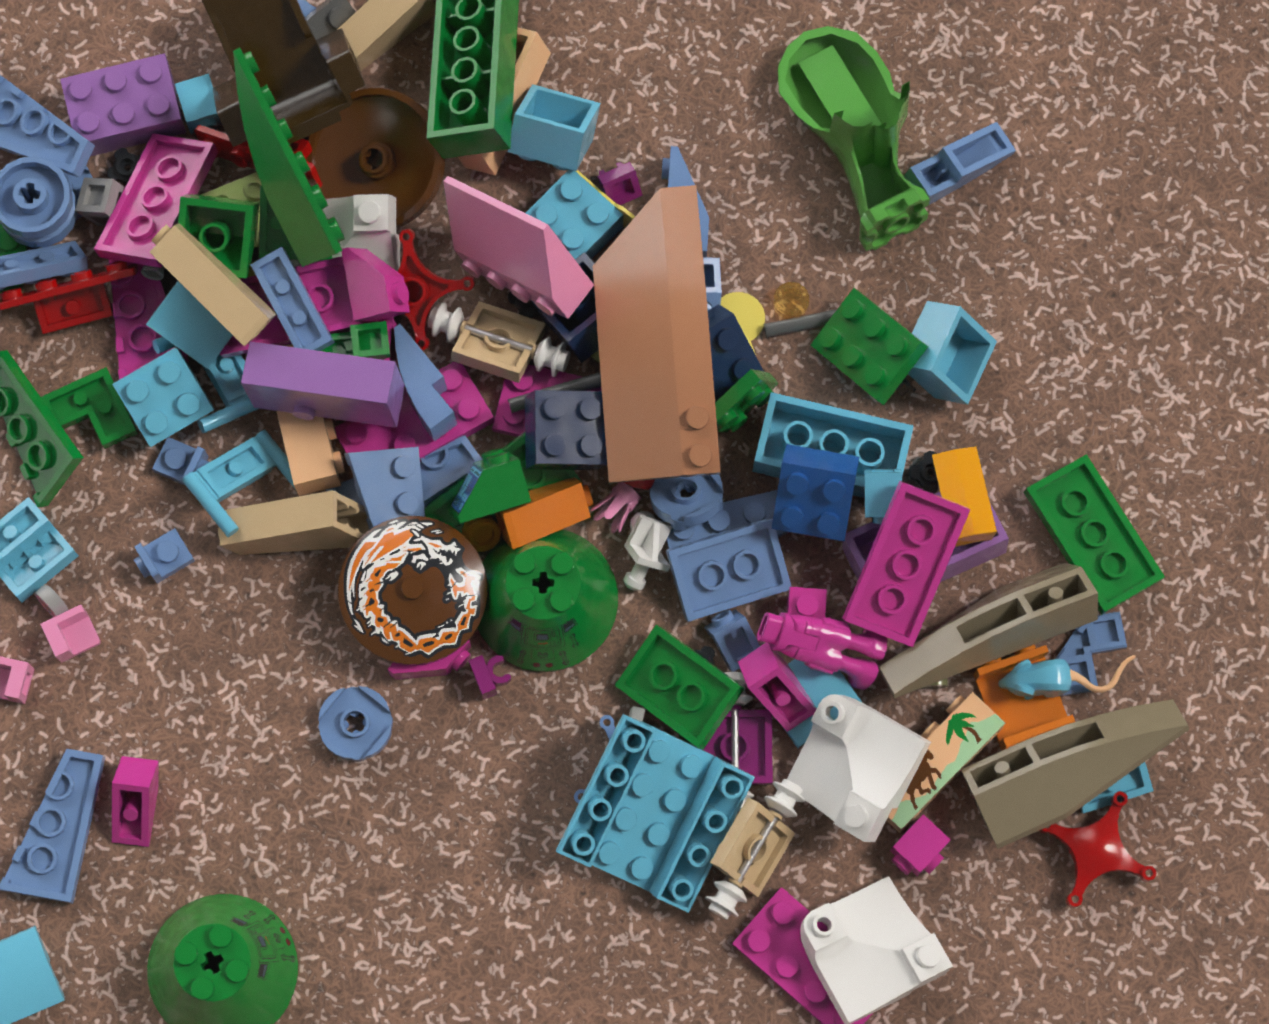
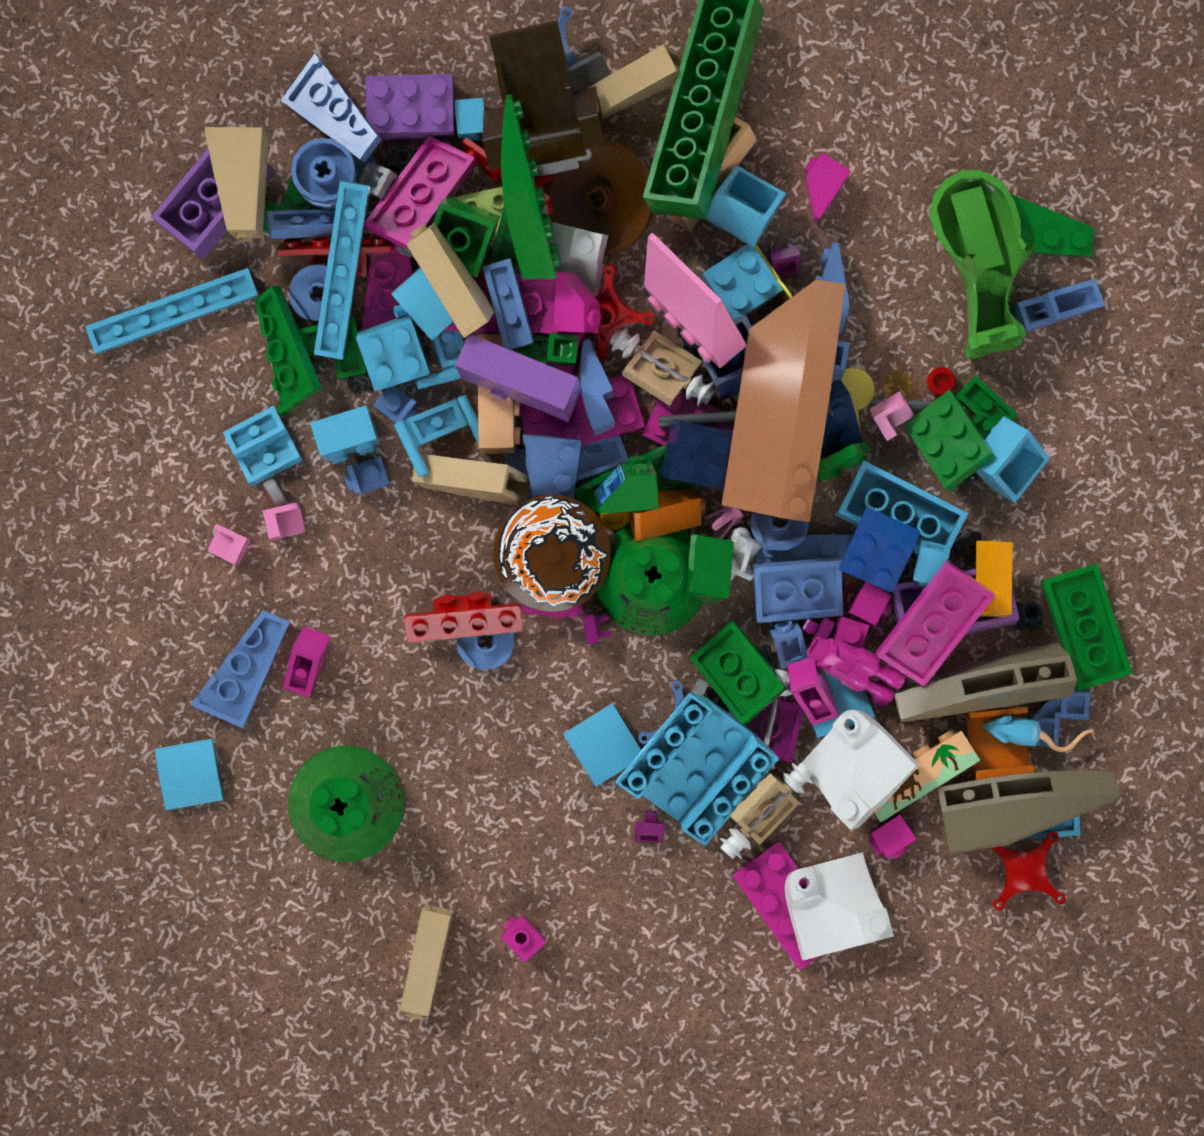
camera: 15 degrees right, 10 degrees up
(56, 367) = (302, 288): none -> medium blue plate
(78, 308) = (342, 269): none -> medium azure plate
(125, 507) = (346, 434): none -> medium azure piece
(320, 700) = (463, 617): none -> bracket
(530, 817) = (603, 744): none -> medium azure slope
(612, 565) = (709, 568): none -> green slope
(614, 910) = (649, 830): none -> magenta tile
(643, 83) = (822, 183): none -> dark pink slope
(756, 610) = (821, 630): none -> magenta tile
(792, 333) = (891, 413): none -> bright pink panel
(823, 565) = (870, 604): none -> dark pink brick
(840, 283) = (940, 381): none -> red tile
(899, 296) = (984, 405): none -> green plate
(934, 80) = (1053, 231): none -> green wing
(1021, 536) = (1034, 613): none -> black plate

